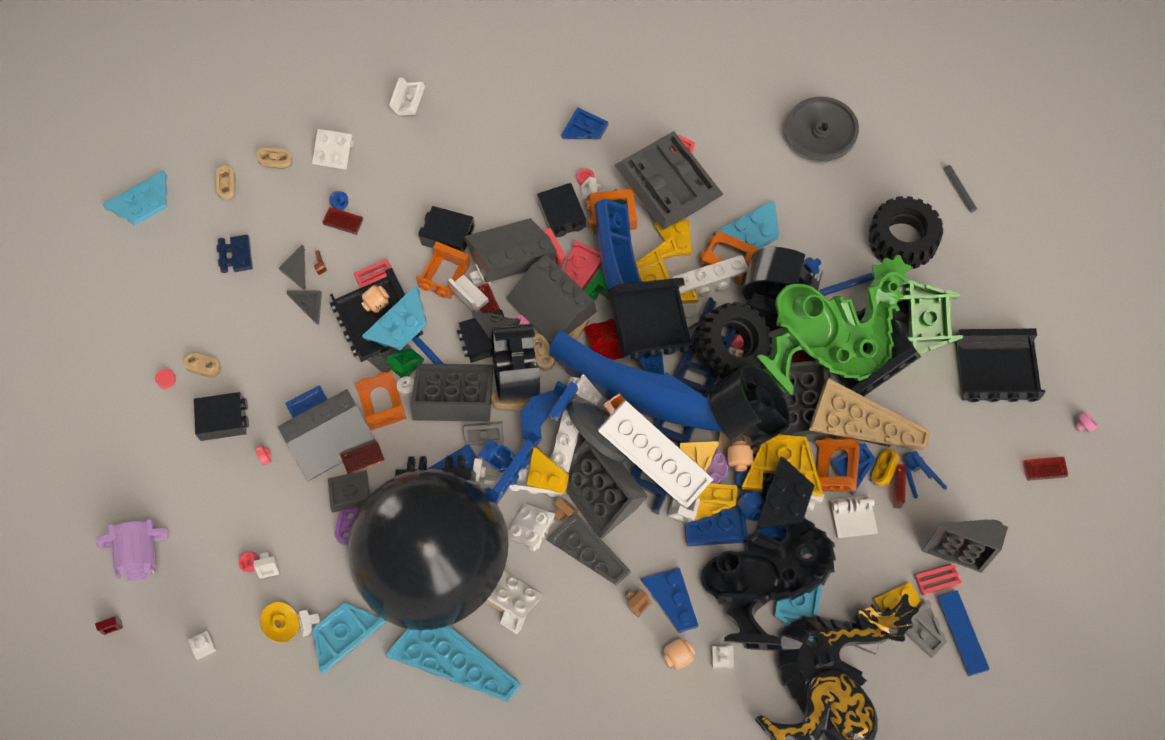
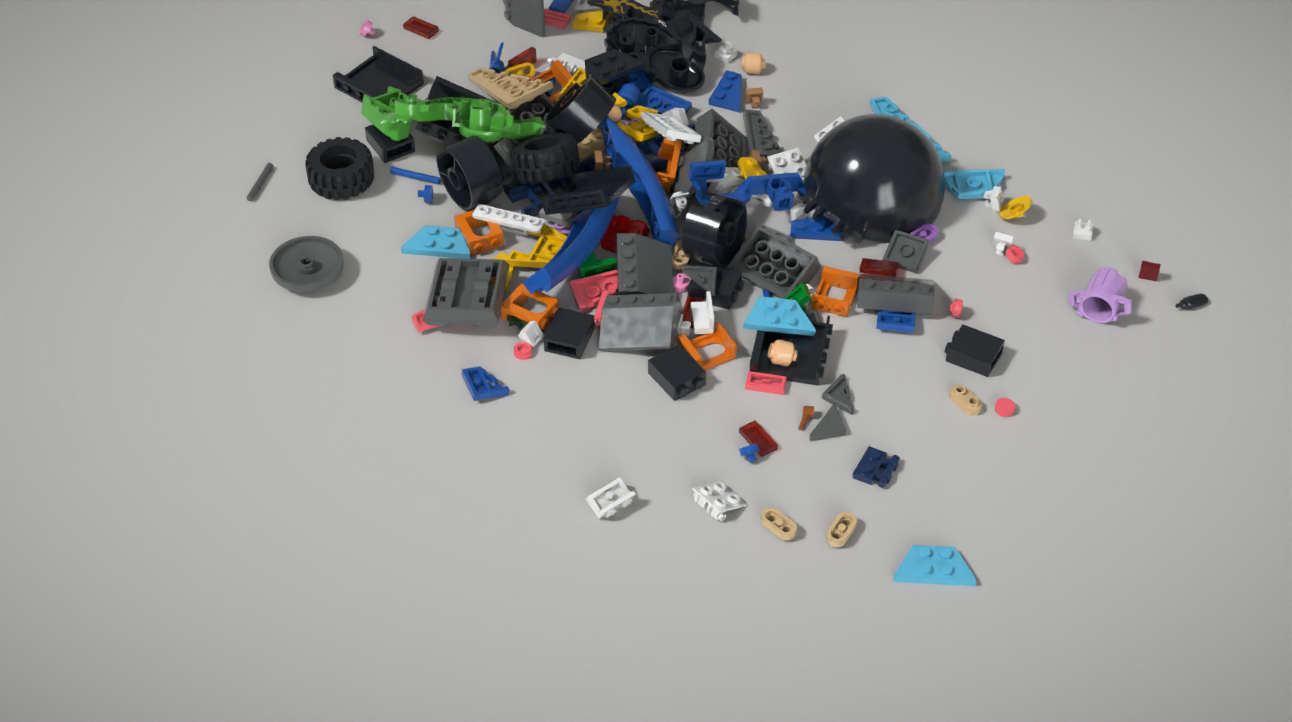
camera: 145 degrees left, 20 degrees down
(53, 617) = (1193, 301): none -> black piece
(690, 381) = (601, 162): none -> medium nougat tile

